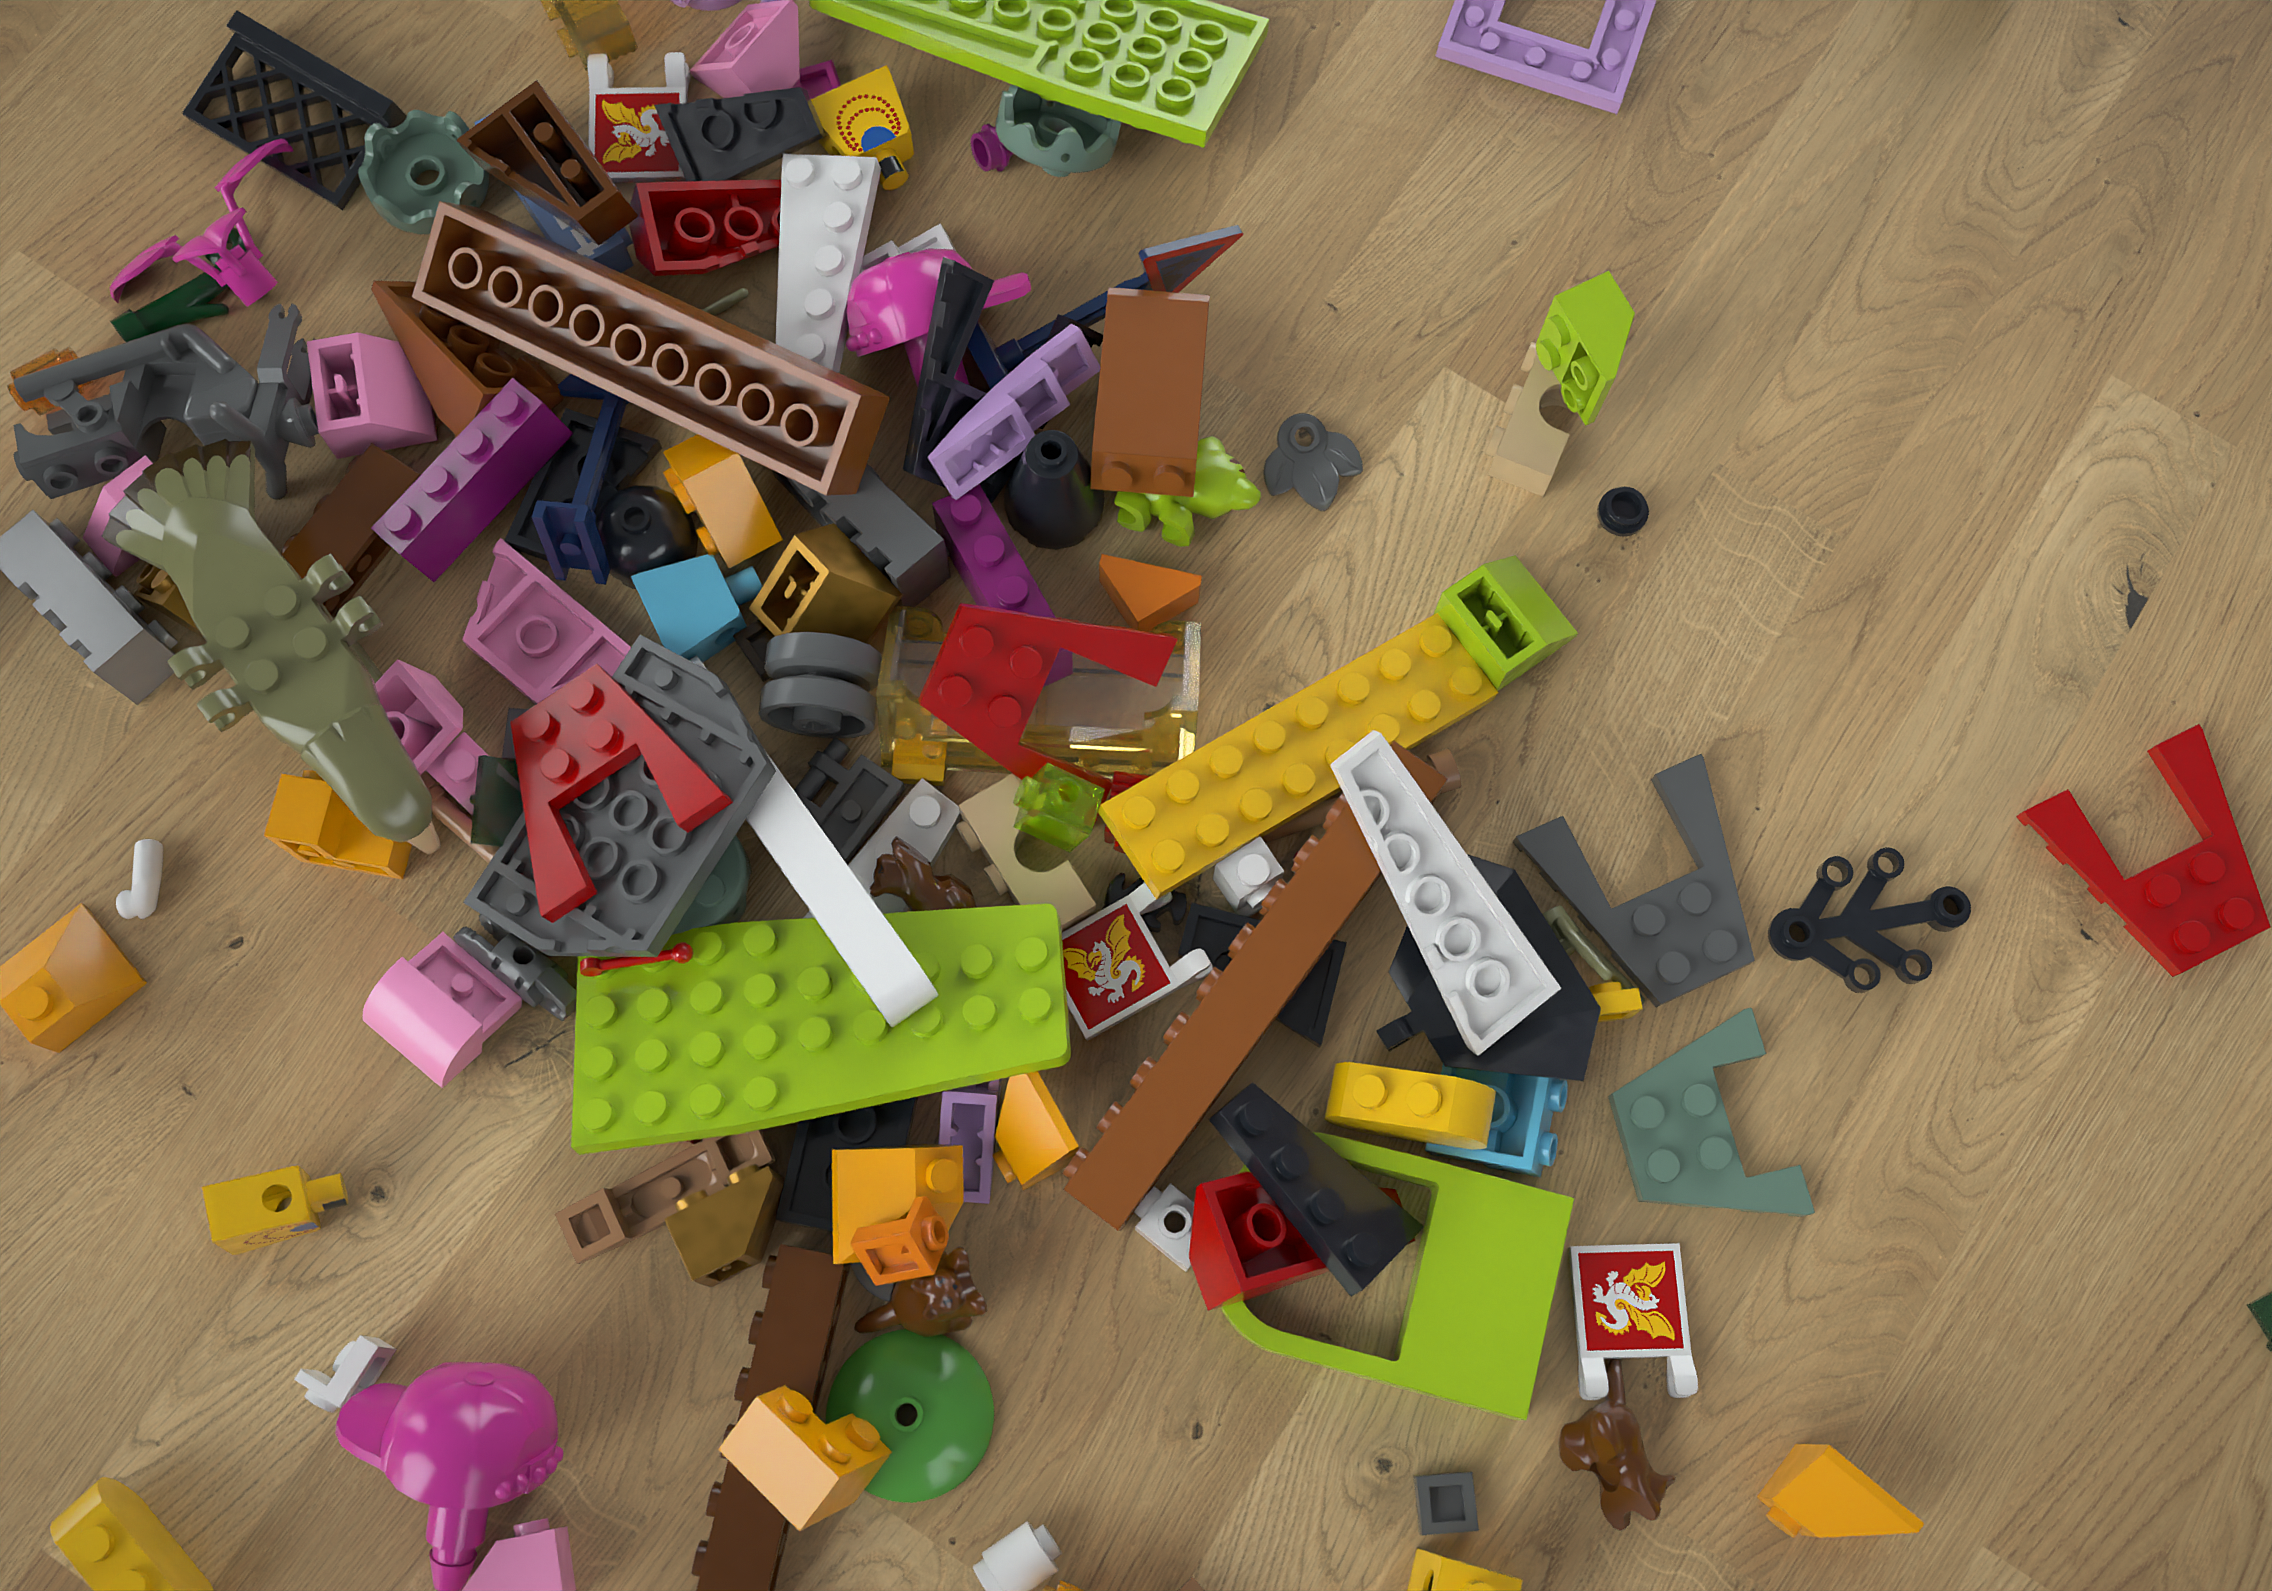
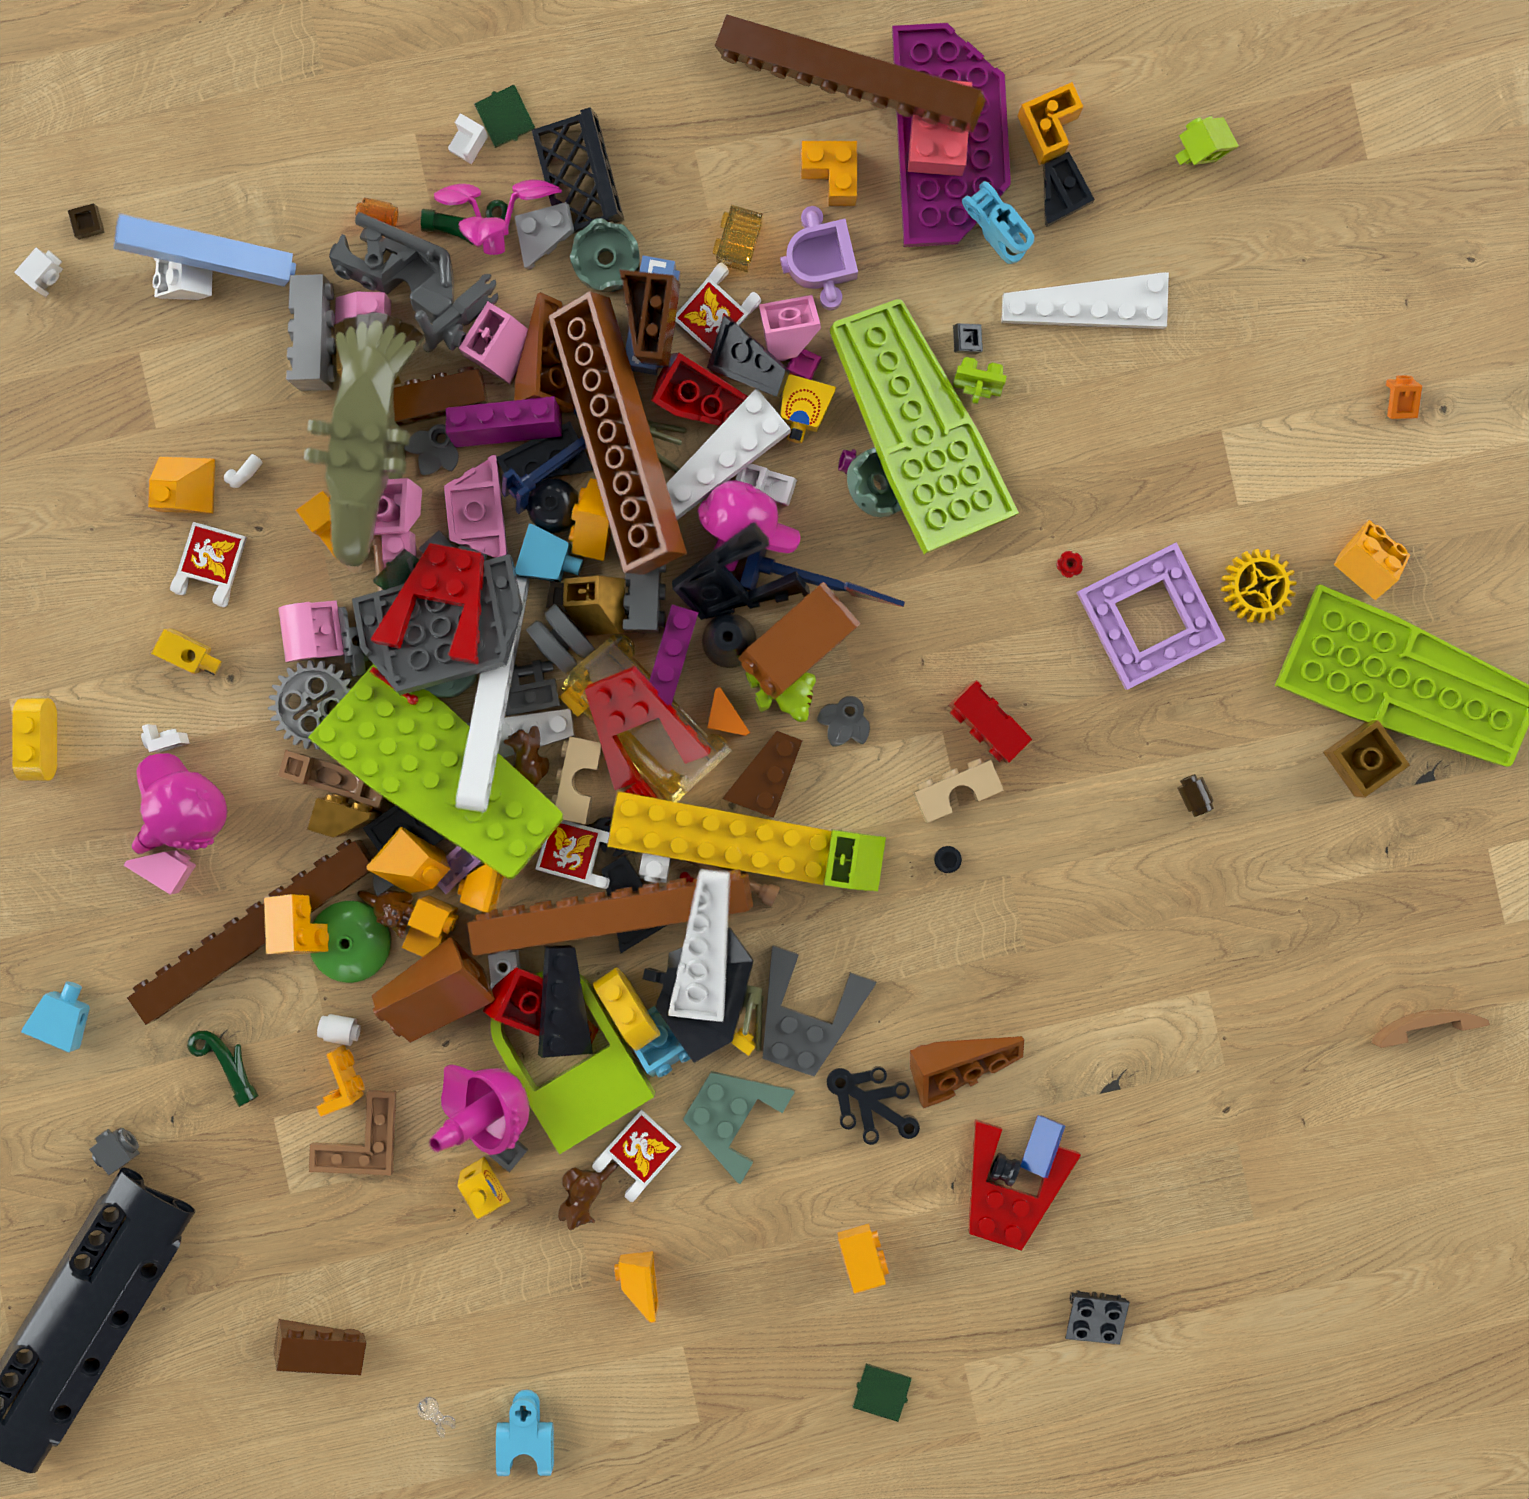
camera: 45 degrees right, 15 degrees up
(100, 188) = (468, 139): none -> white panel
(129, 130) = (504, 116): none -> clear green piece
(196, 1045) = (211, 558): none -> flag
(309, 215) = (542, 231): none -> light grey wing
(413, 616) = (431, 453): none -> dark grey plate
(491, 1100) = (301, 684): none -> light grey gear
(904, 1246) = (393, 889): orange bracket -> none
(1011, 411) = (728, 598): lavender slope -> none
(1011, 1269) = (429, 925): none -> light orange brick
(1057, 807) = (603, 775): clear neon green brick -> none
(1109, 1357) = (433, 992): none -> dark orange slope
(1281, 617) = (766, 776): none -> reddish brown wedge
(1348, 1459) = (482, 1107): none -> dark pink piece
(1393, 41) = (1062, 564): none -> red plate
(1488, 288) = (989, 722): none -> red wedge
(1586, 342) = (989, 788): lime slope -> none
(1838, 151) = (1196, 795): none -> dark brown brick
(1911, 765) = (948, 1065): none -> dark orange wedge
(2094, 1139) = (862, 1259): none -> light orange brick
(2132, 836) = (1005, 1169): none -> black wheel
(2141, 760) = (1042, 1146): none -> tile

